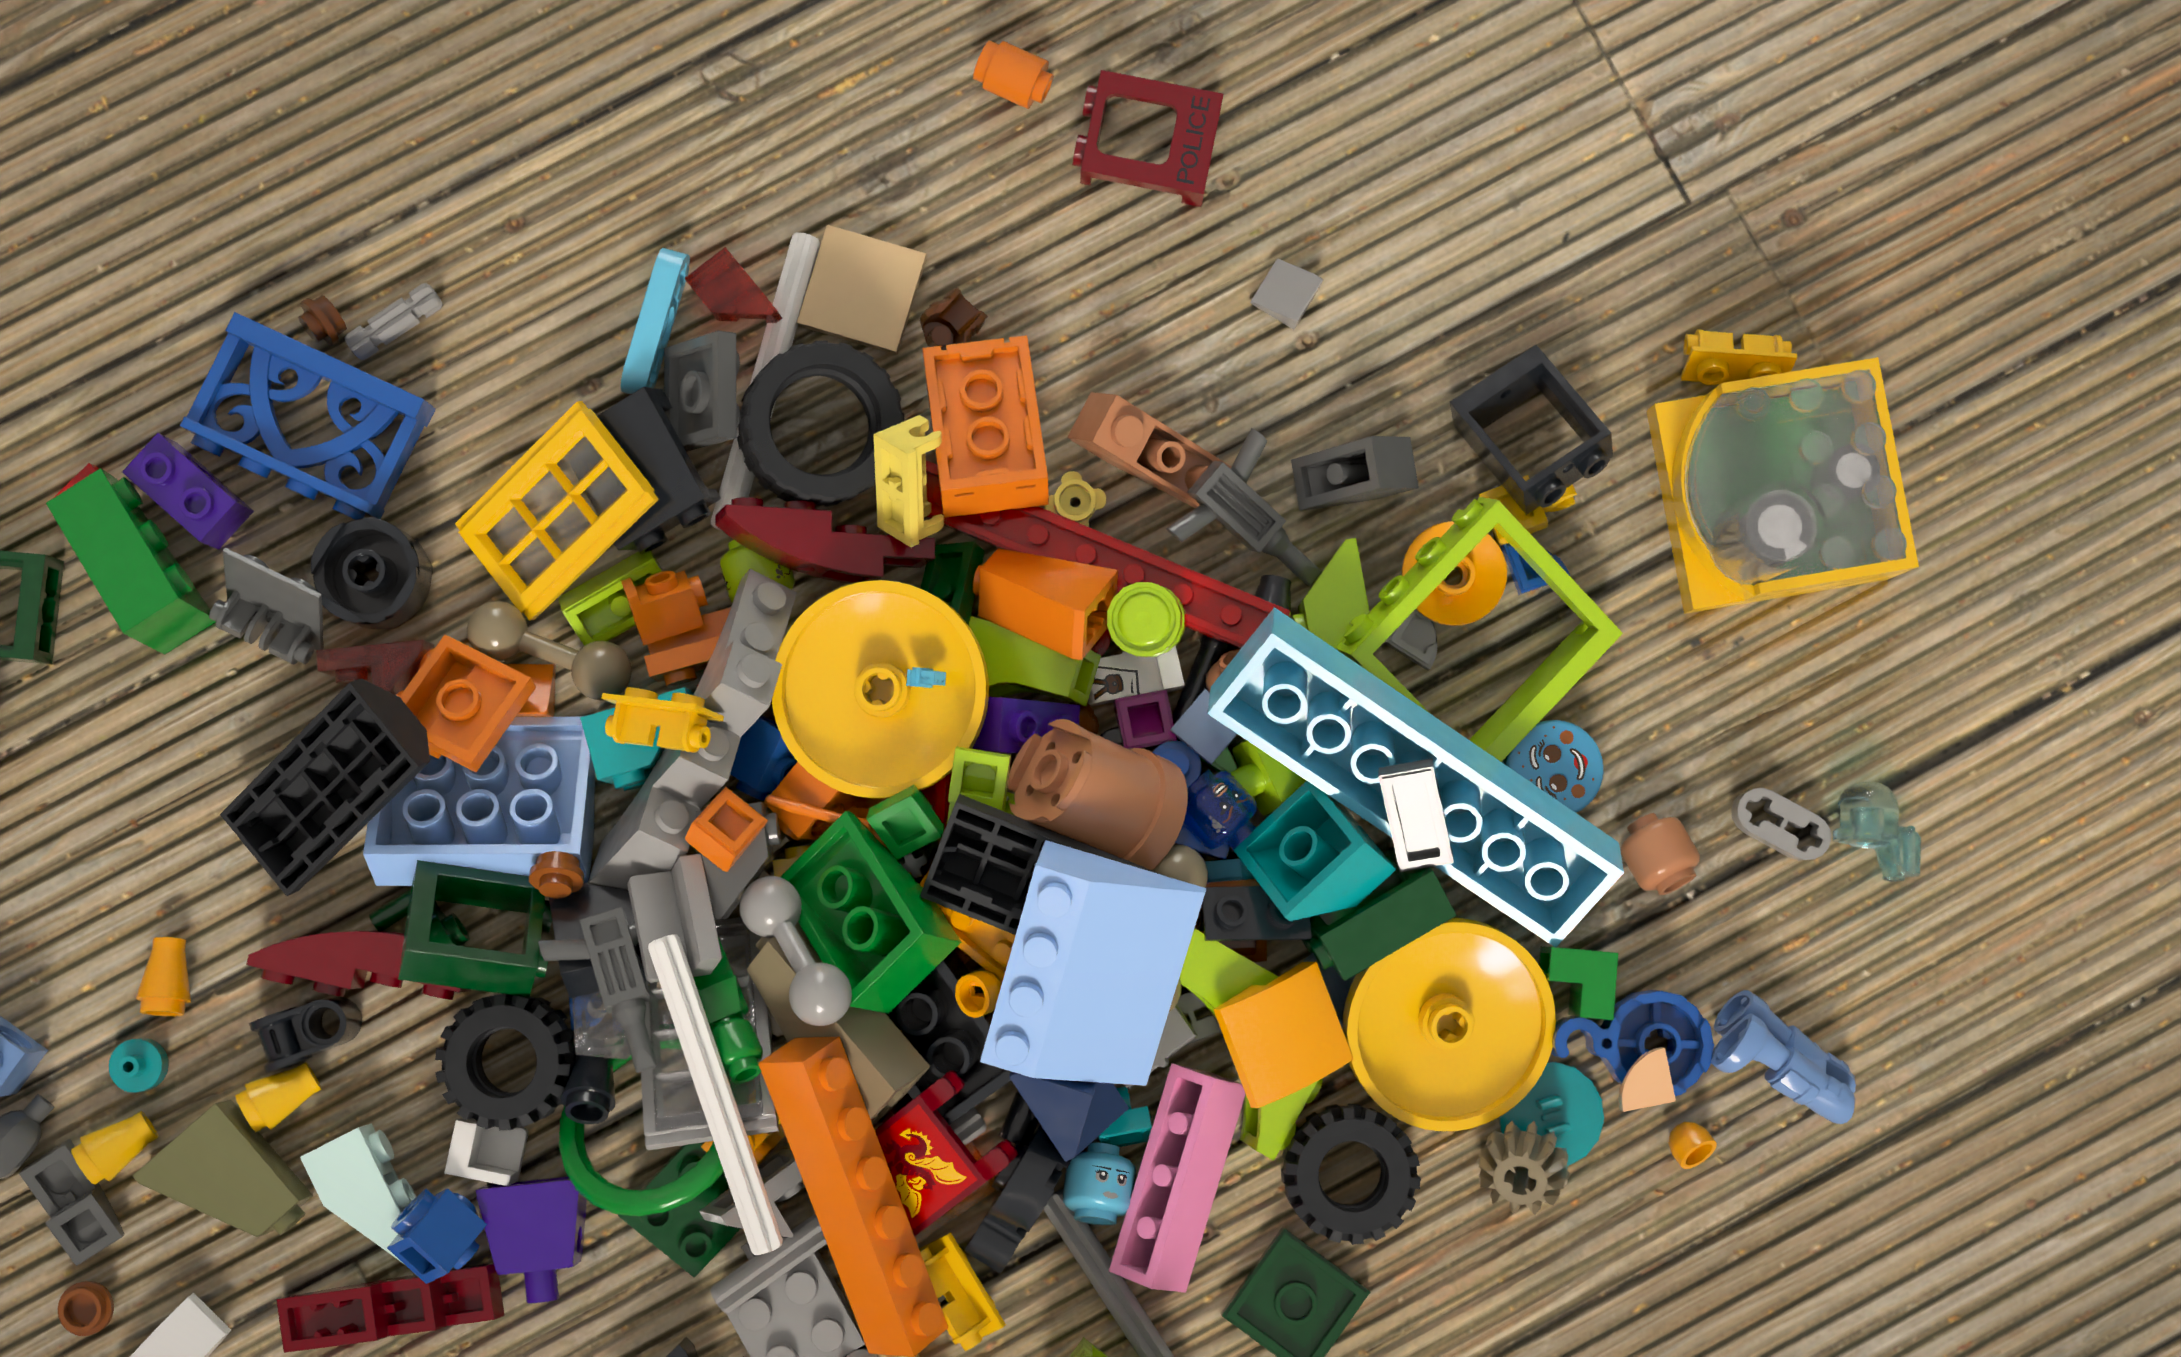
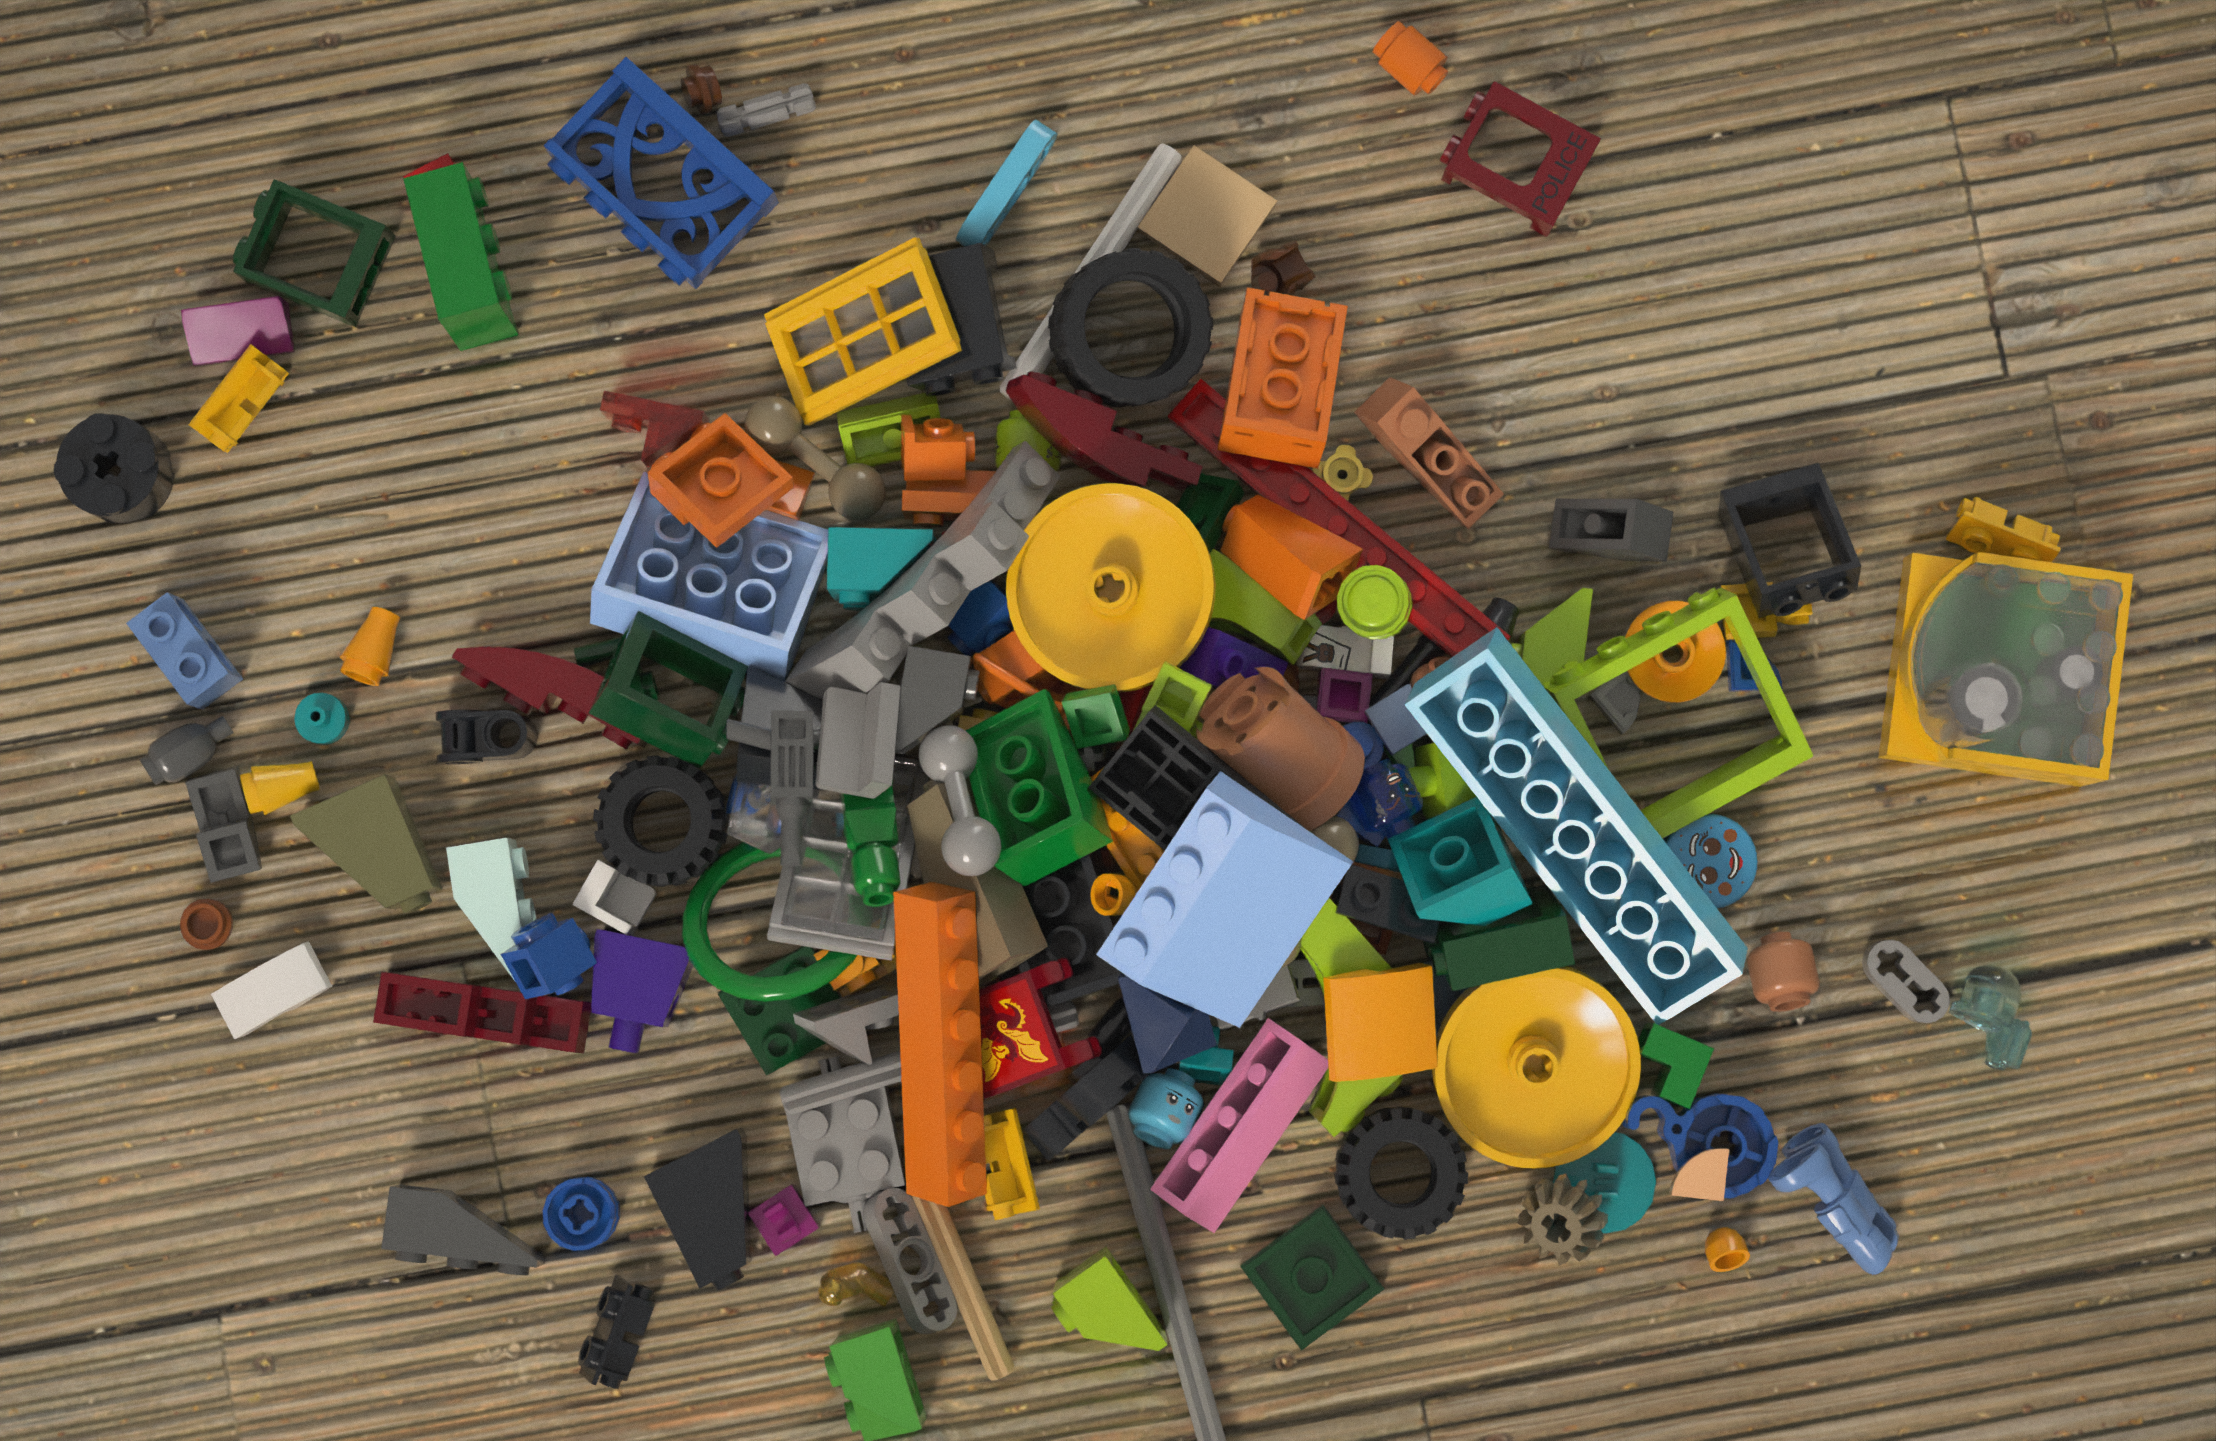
camera: 25 degrees right, 0 degrees up
(187, 491) = (530, 208): dark purple brick -> none
(270, 602) = (576, 330): dark grey hinge -> none
(276, 1096) = (440, 786): yellow cone -> none
(329, 783) = (579, 515): black piece -> none
(347, 593) = (688, 311): black brick -> none
(556, 874) = (761, 664): dark orange plate -> none
(590, 1090) = (728, 871): black cone -> none
(680, 720) = (922, 556): yellow hinge -> none
(703, 389) = (1033, 261): dark grey plate -> none
(715, 1094) = (846, 907): white axle -> none
(725, 829) = (930, 670): orange slope -> none
(730, 290) = (1085, 179): clear red tile -> none
(903, 480) = (1191, 403): light yellow hinge -> none
(925, 677) = (1155, 590): medium azure piece -> none
(1242, 511) = (1485, 515): dark grey piece -> none
(1287, 292) = (1601, 342): light grey slope -> none
(1416, 815) = (1566, 859): tile -> none

